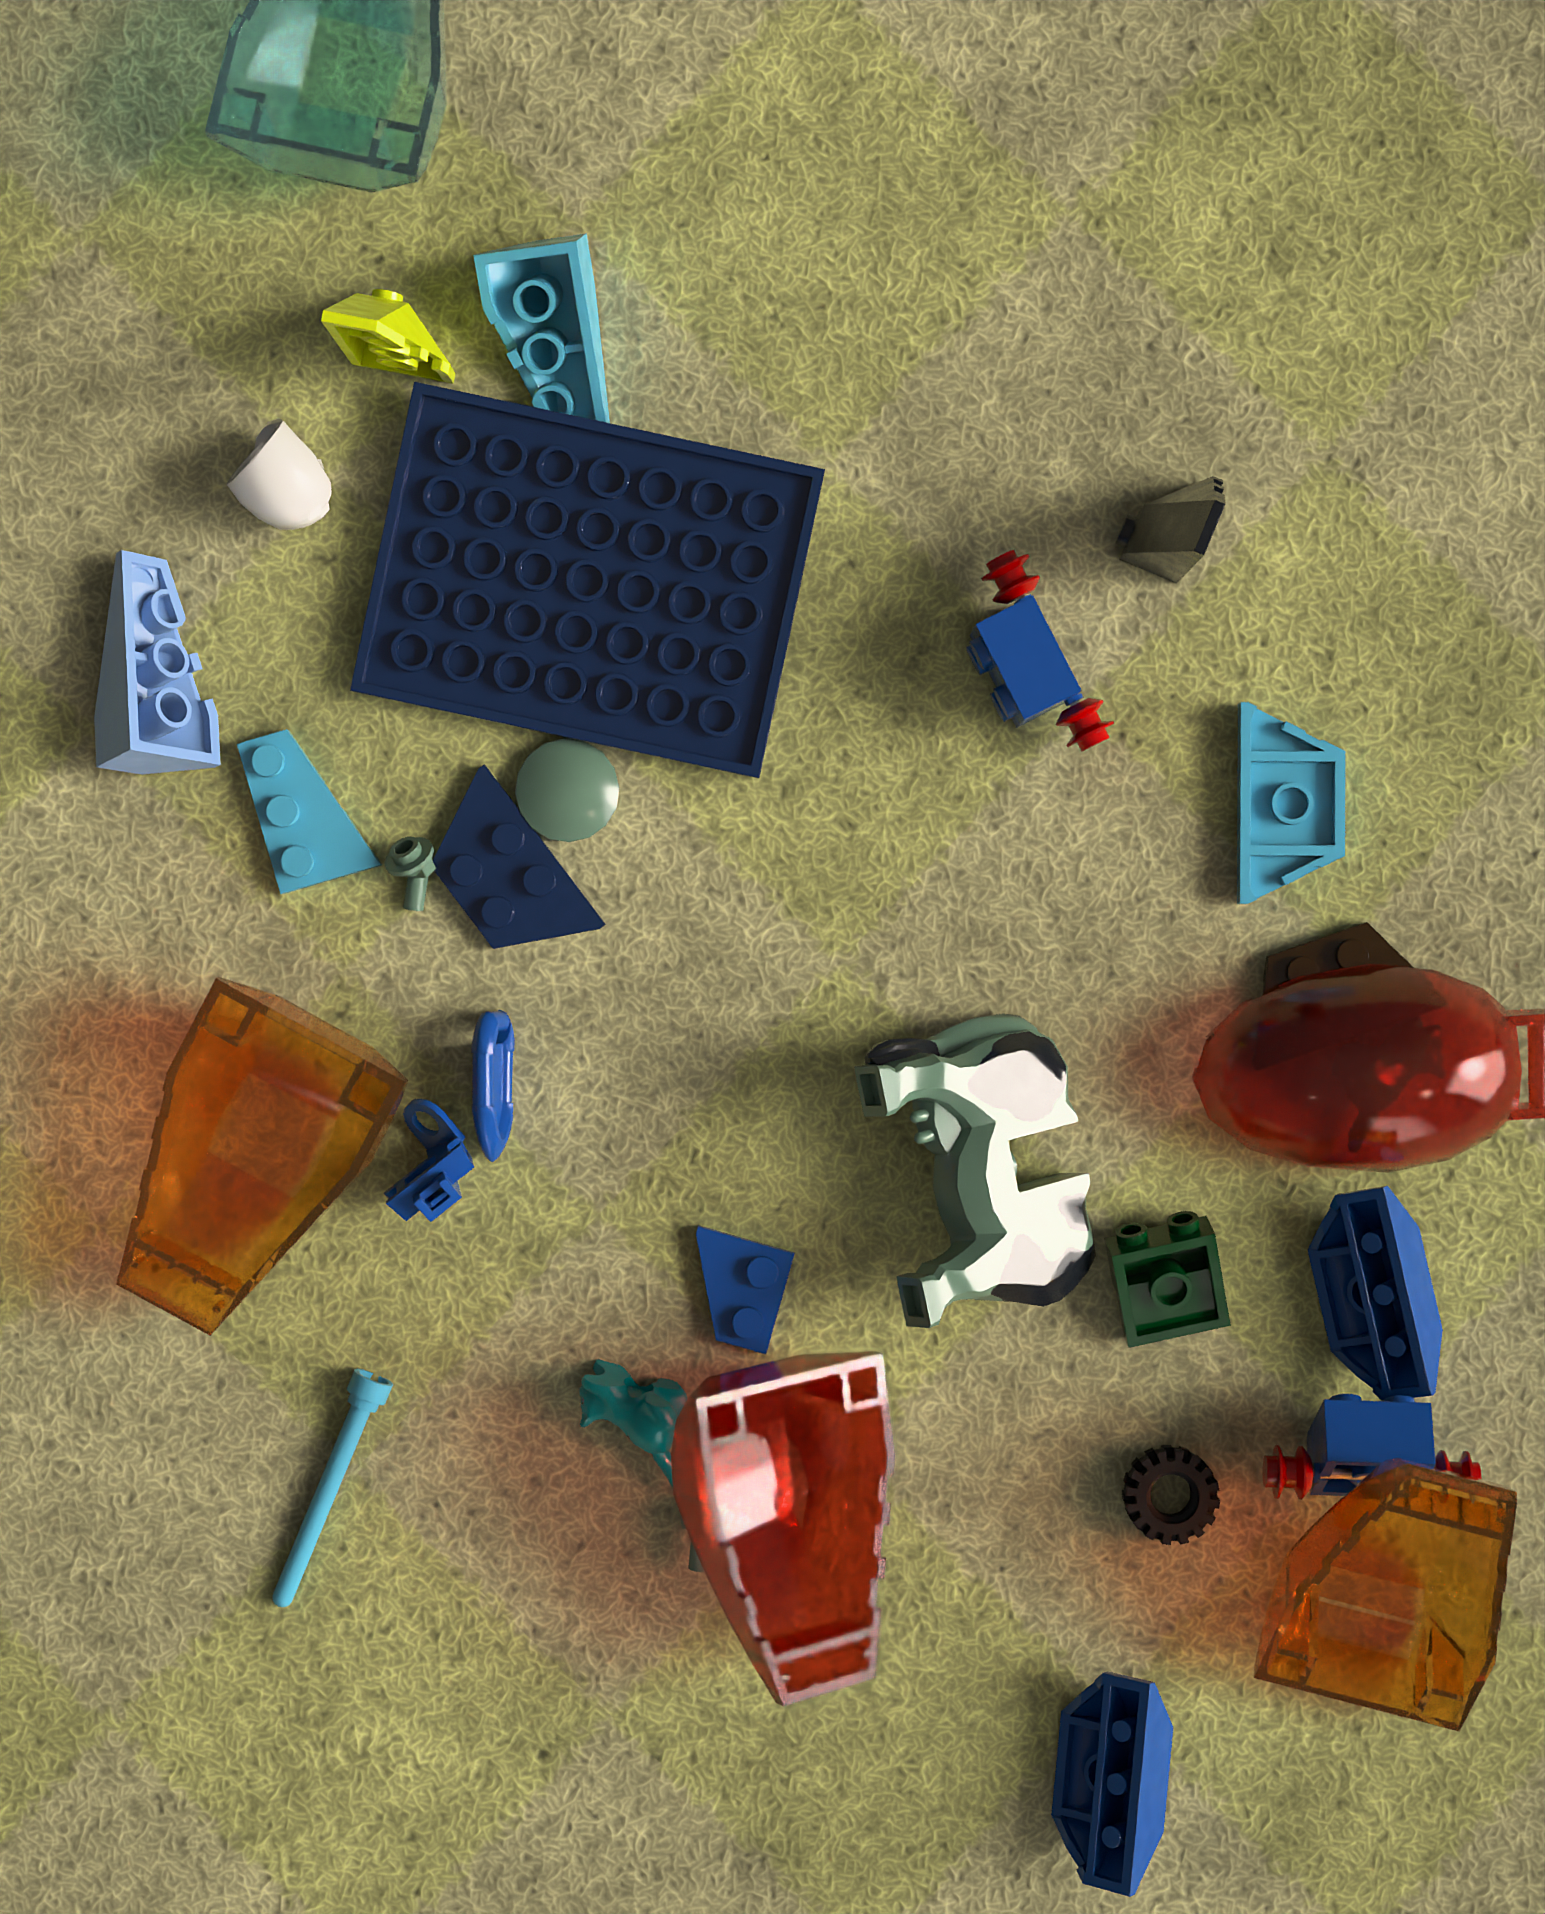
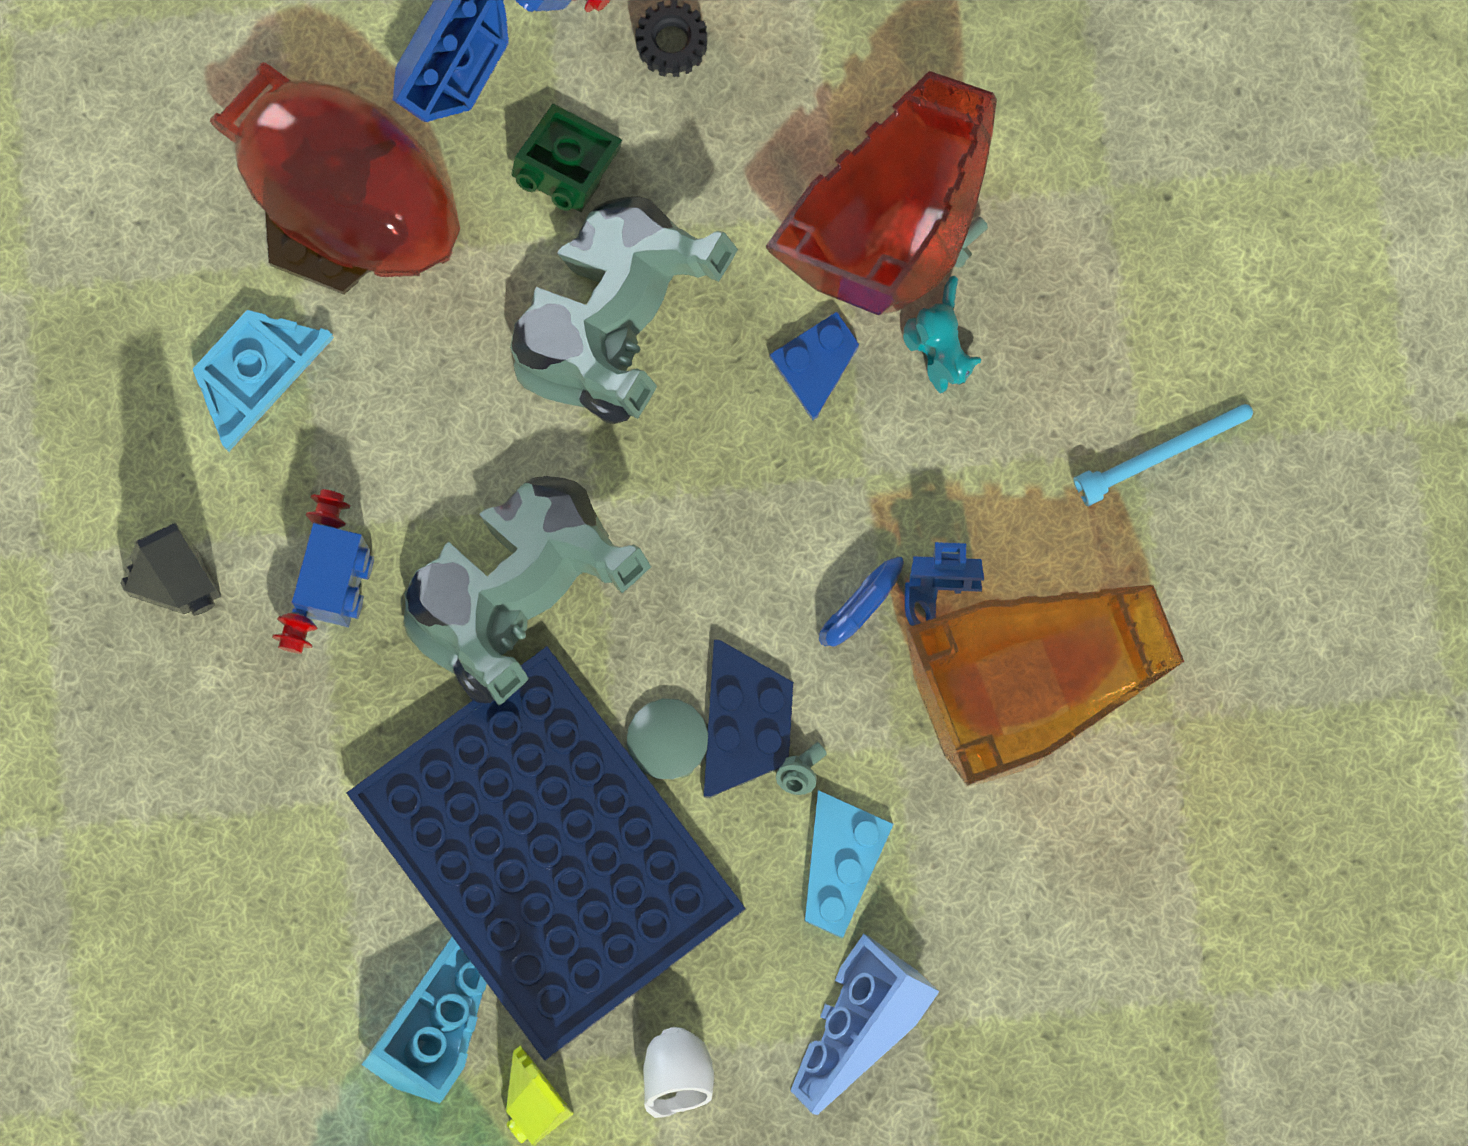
camera: 135 degrees left, 10 degrees down
(841, 737) = (475, 618): none -> sand green animal

